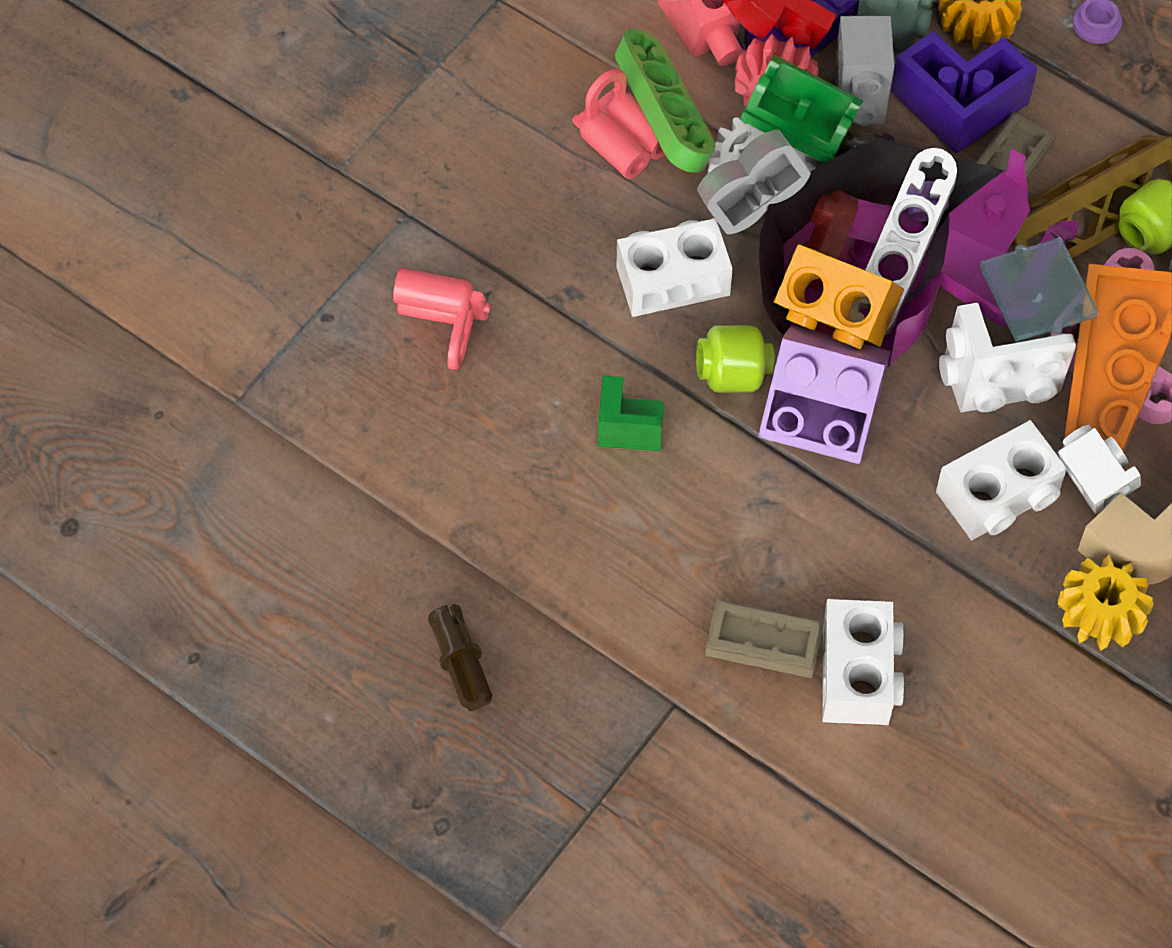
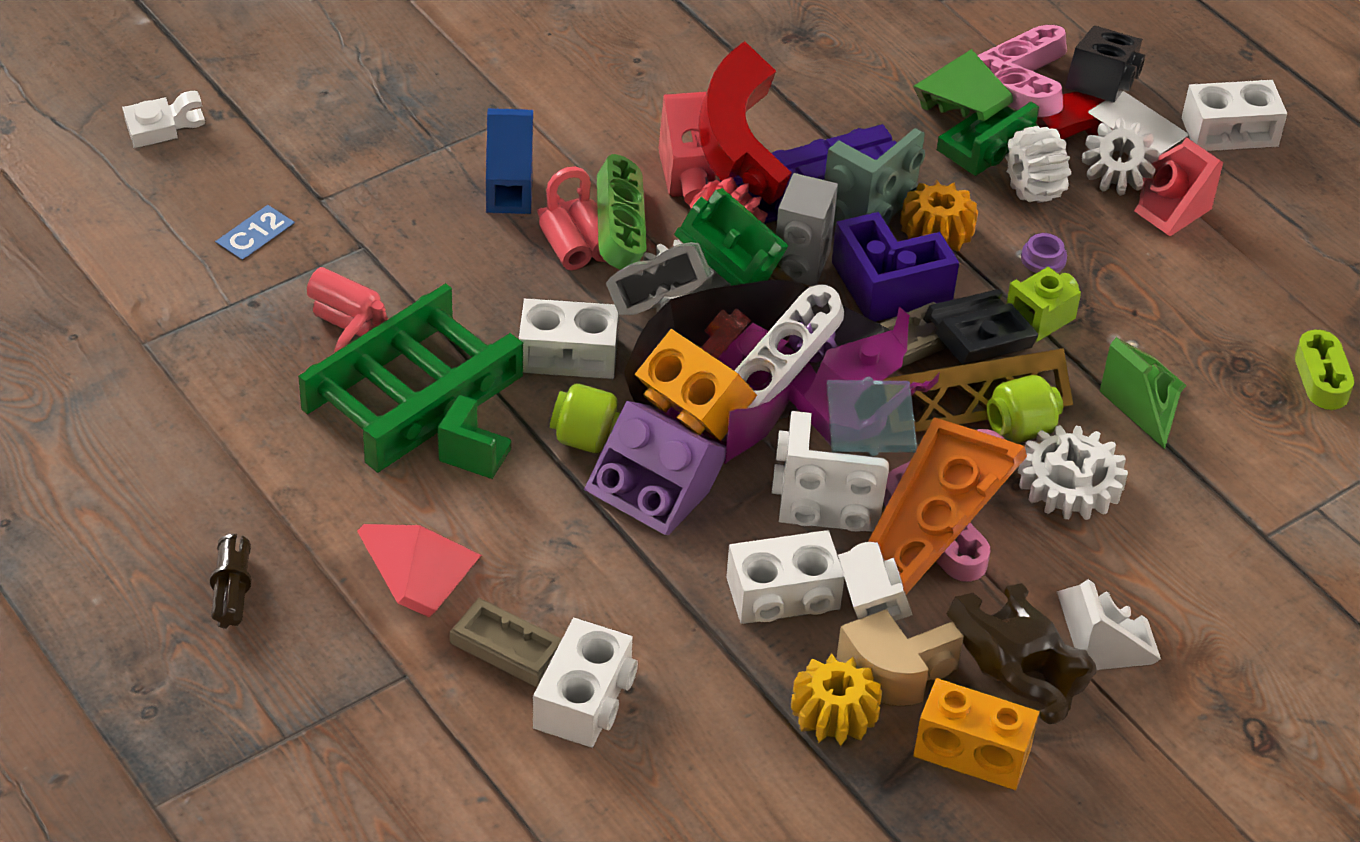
camera: 15 degrees right, 15 degrees down
(126, 125) = (157, 121): none -> white plate
(288, 229) = (254, 232): none -> medium blue sticker
(528, 74) = (509, 161): none -> blue slope
(563, 399) = (419, 412): none -> green fence
(637, 582) = (417, 563): none -> coral slope
(1074, 130) = (980, 327): none -> black plate
(1125, 71) = (1052, 298): none -> lime brick

